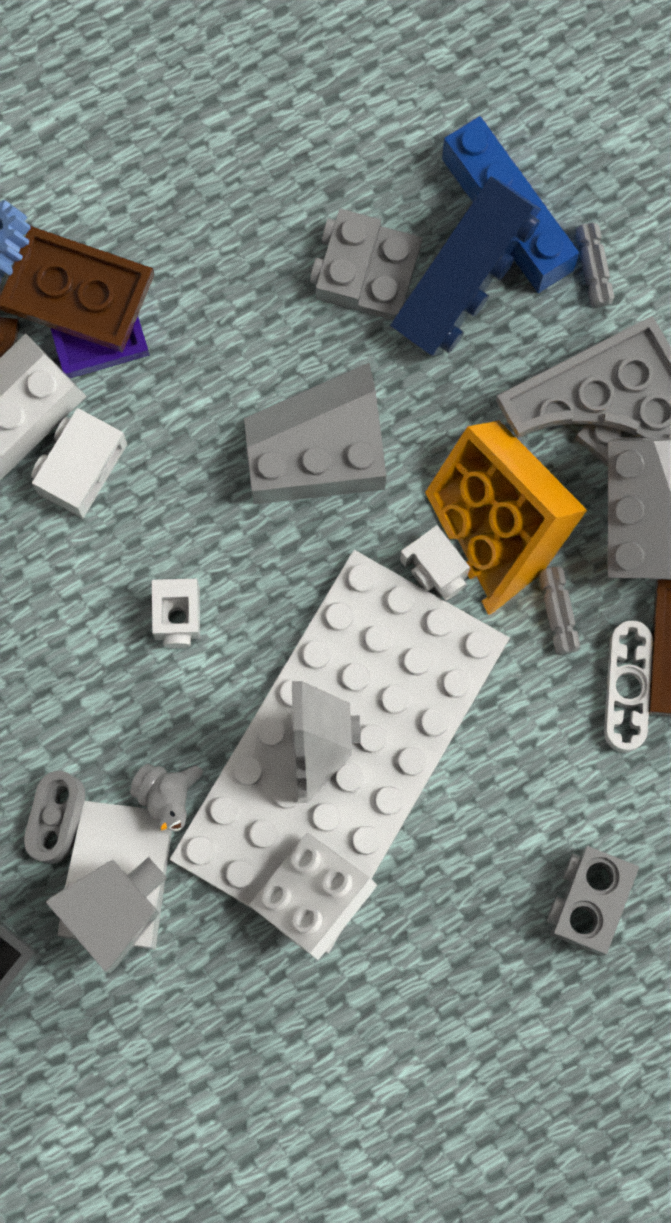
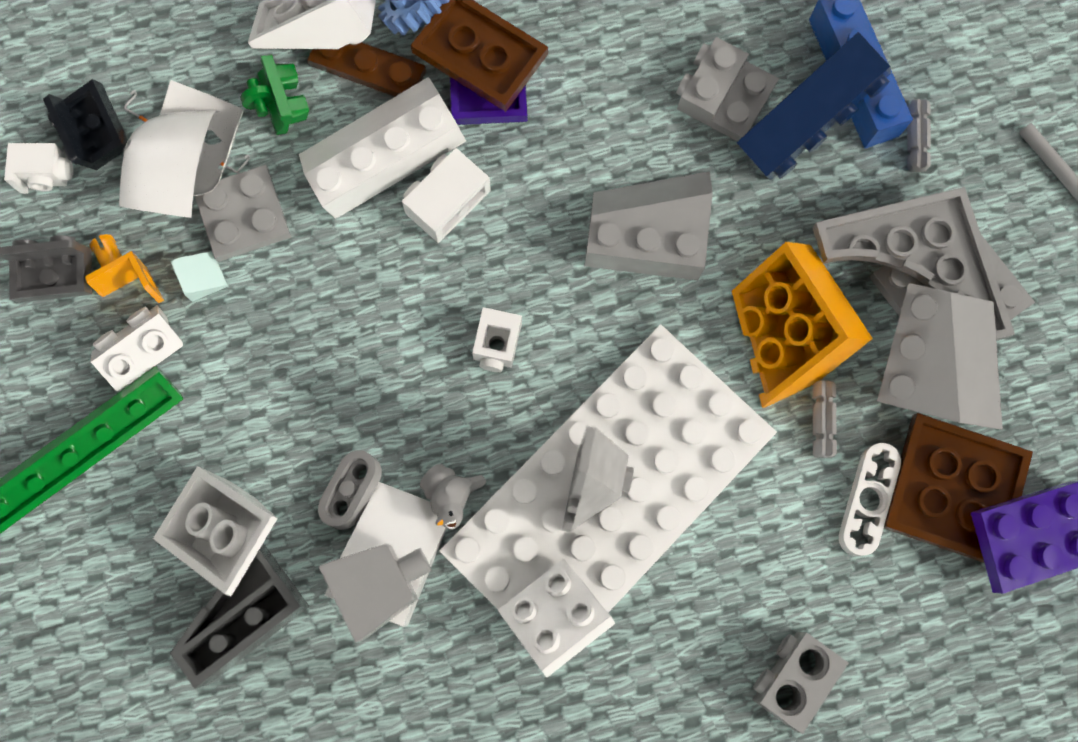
camera: 10 degrees right, 0 degrees up
(436, 563) = (729, 353): white brick -> none

